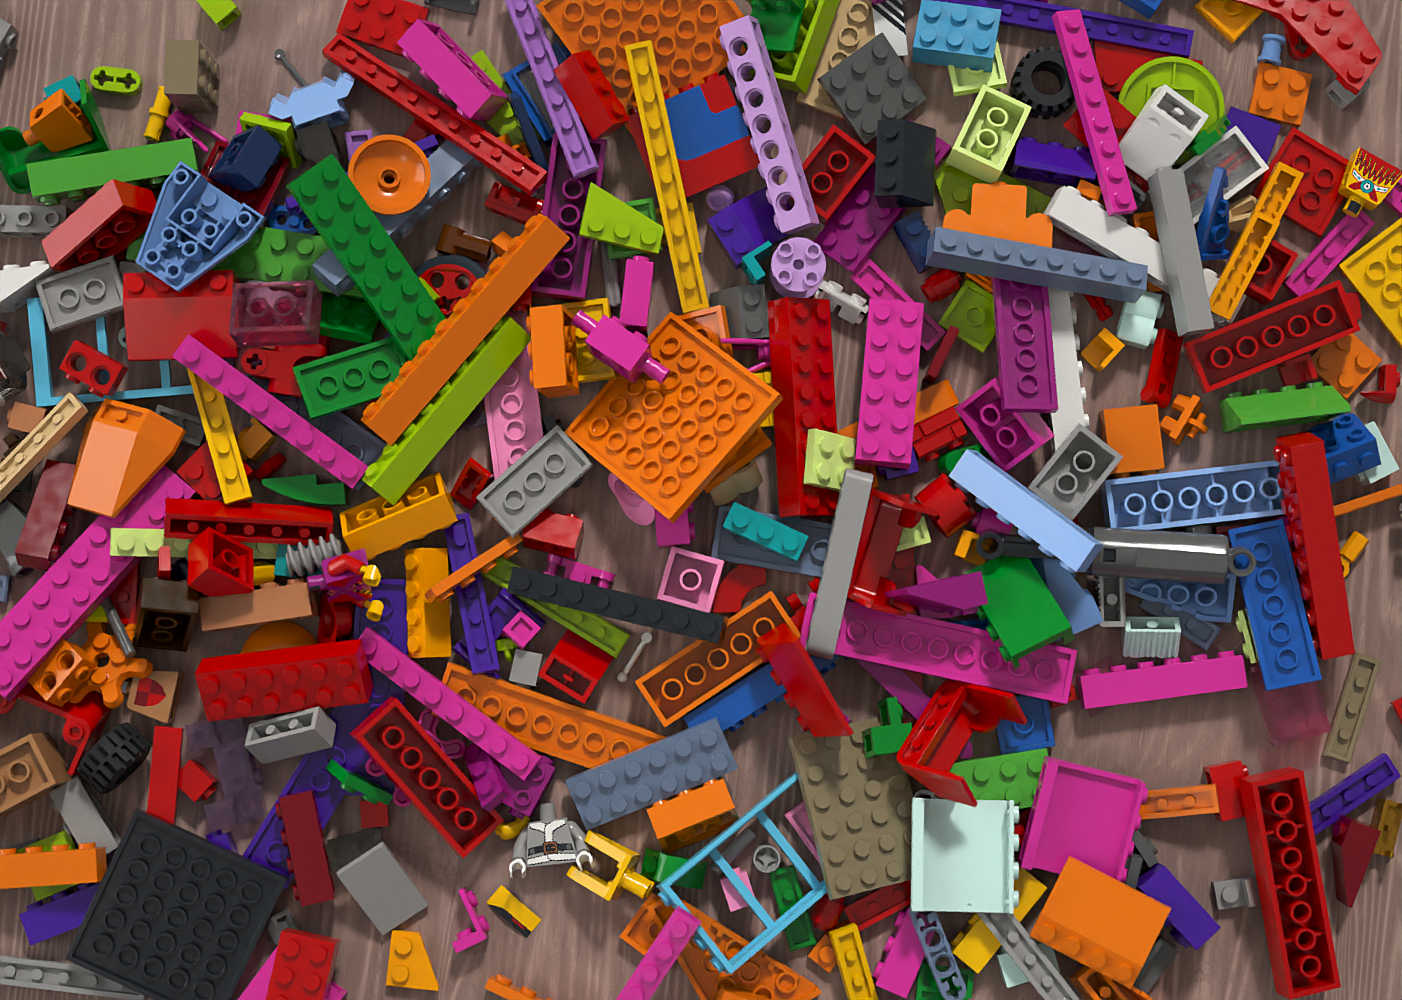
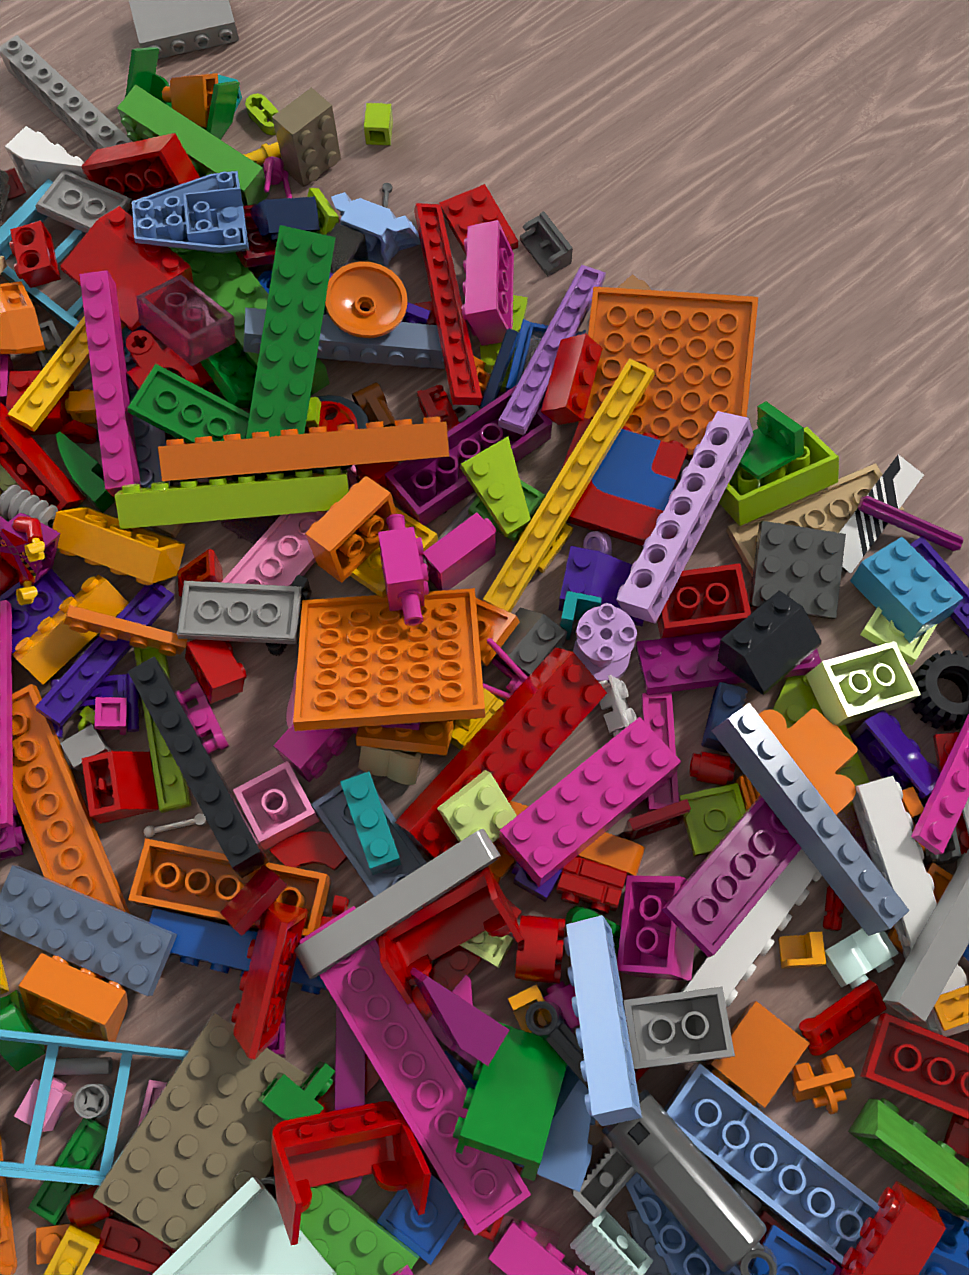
camera: 45 degrees right, 15 degrees down
(748, 648) = (253, 899): none -> dark red tile

